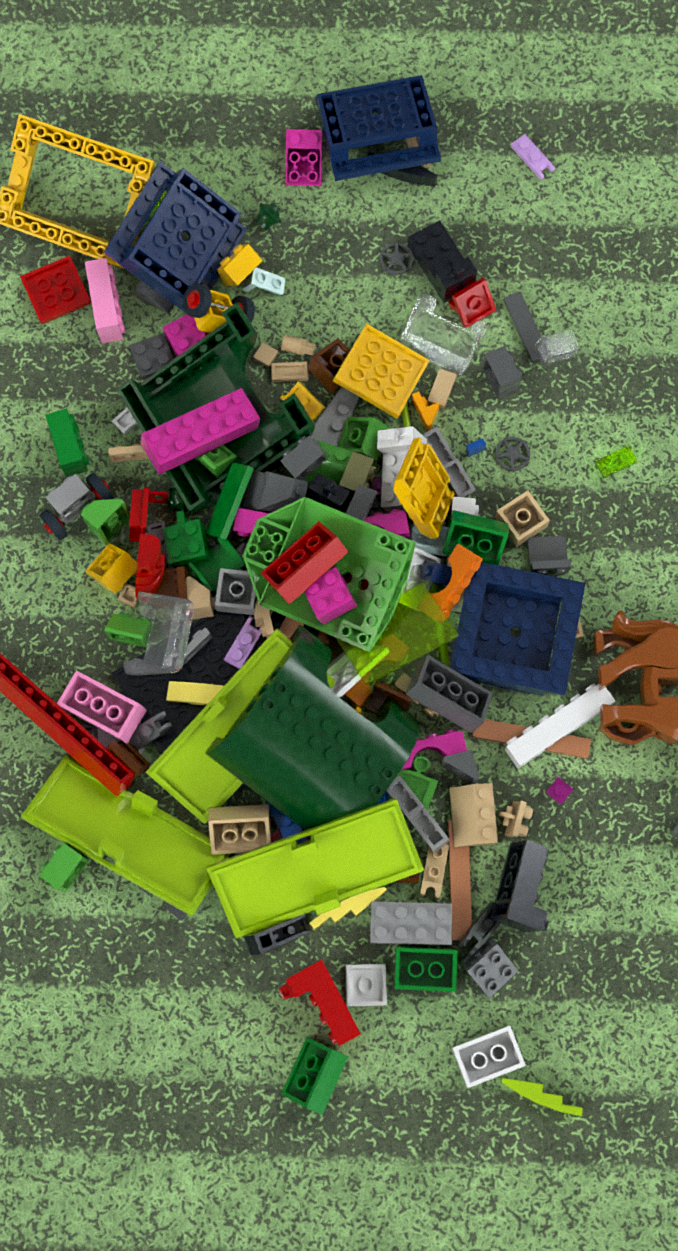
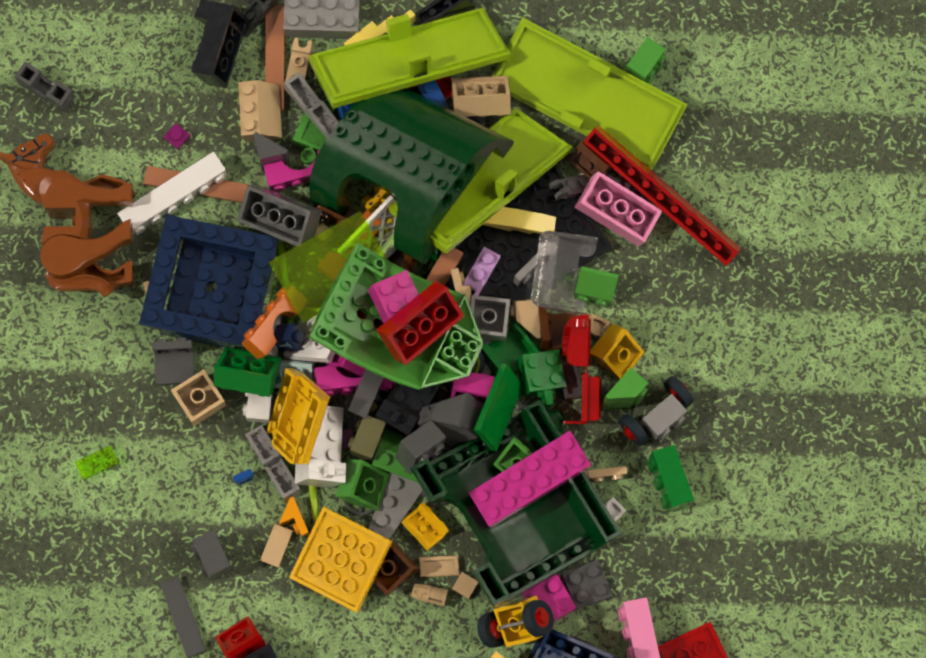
camera: 170 degrees right, 0 degrees up
(441, 339) = (273, 602): clear windscreen -> none
(512, 453) = (204, 473): dark grey wheel -> none
(513, 819) = (221, 110): tan hips -> none
(557, 347) = (150, 587): clear brick -> none

